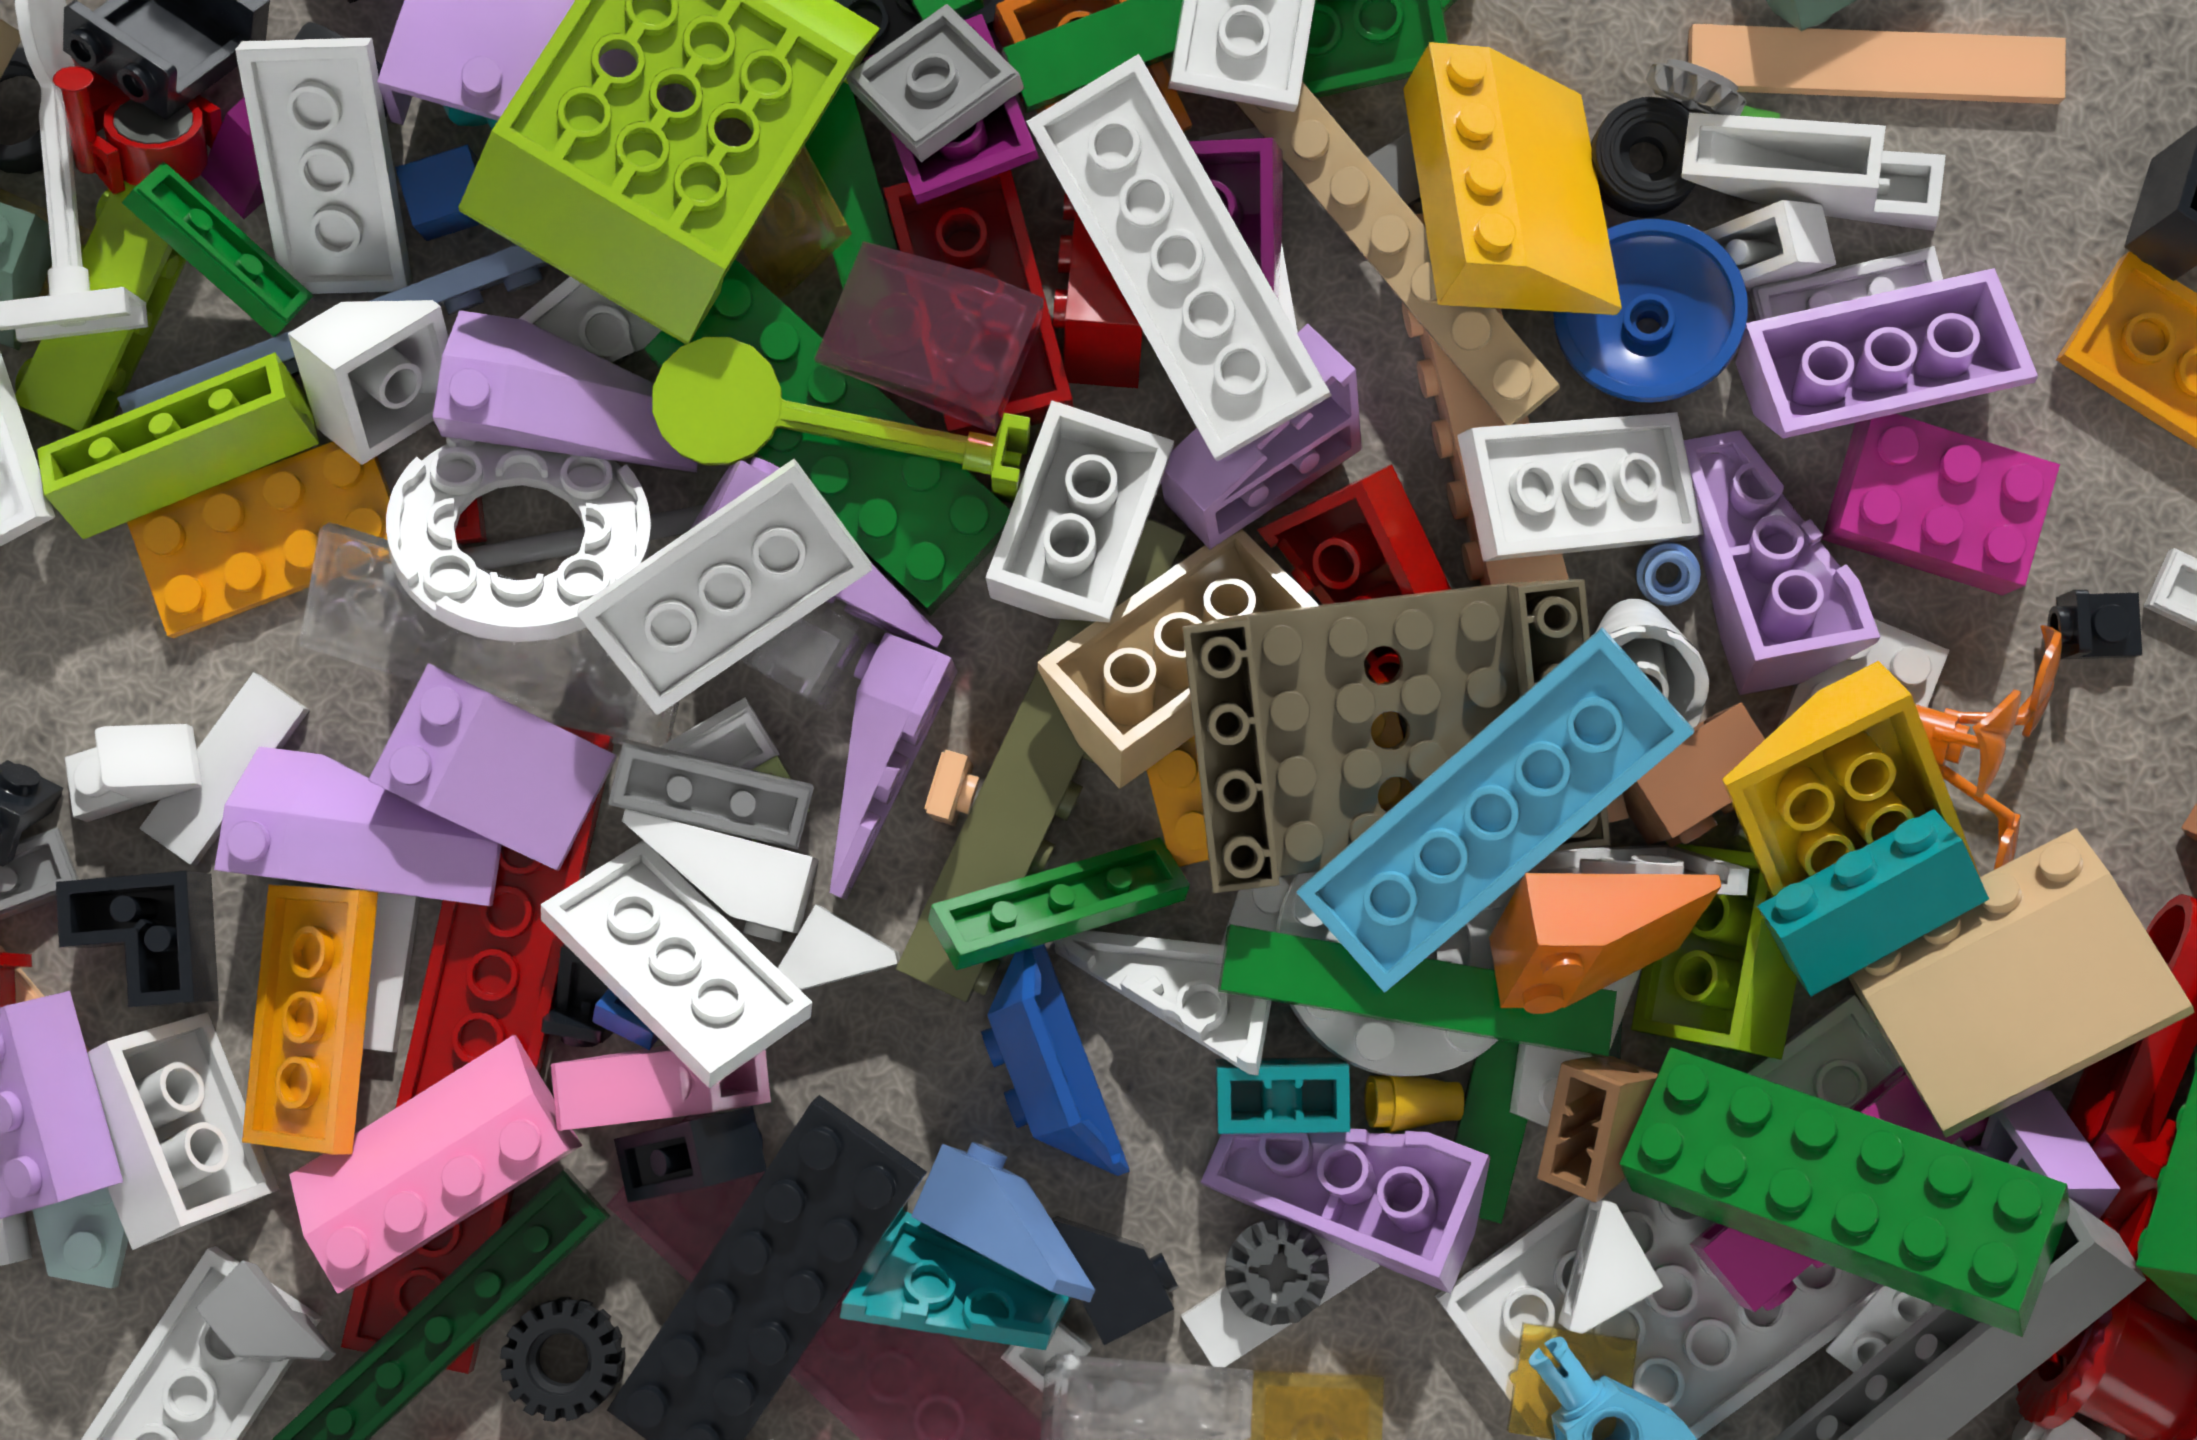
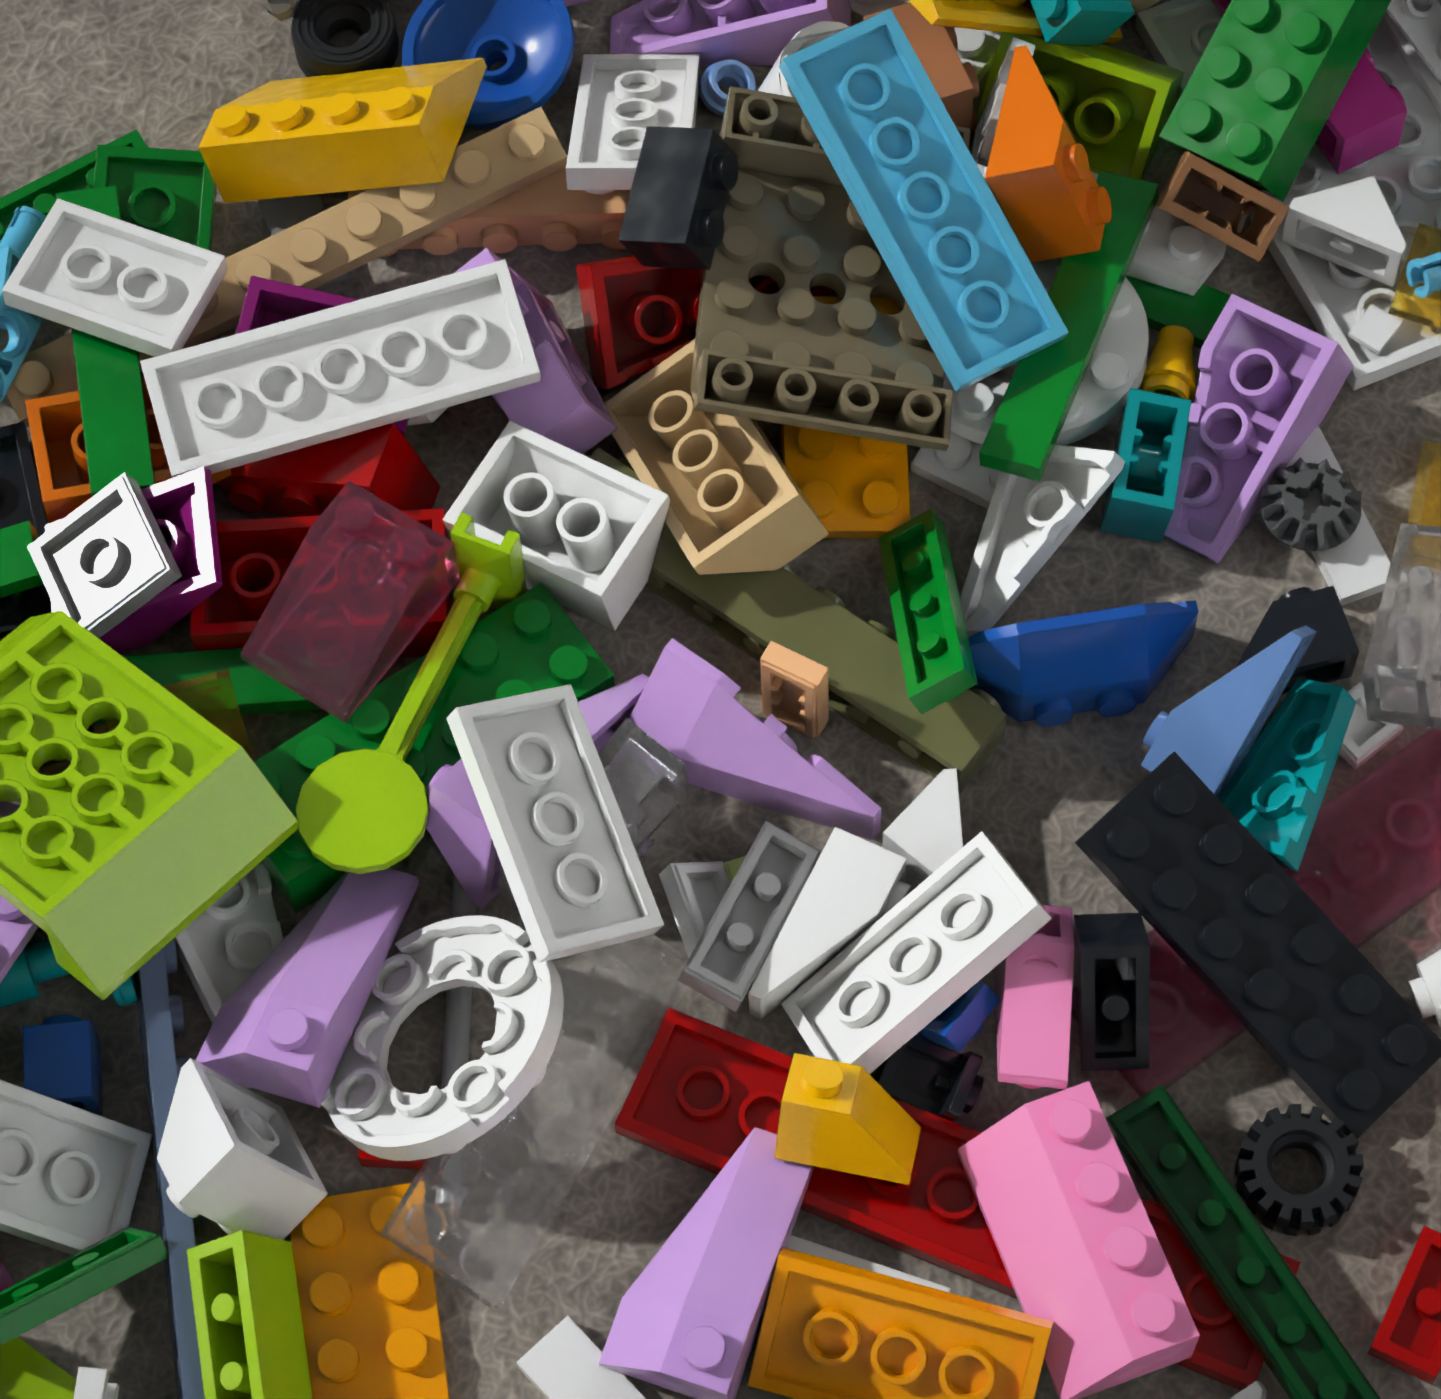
camera: 75 degrees left, 20 degrees down
(492, 767) = (673, 1114): lavender slope -> none
(502, 928) = (844, 1122): none -> yellow slope
(1439, 555) = (679, 198): none -> black brick
(1500, 1310) = (1374, 329): none -> white window

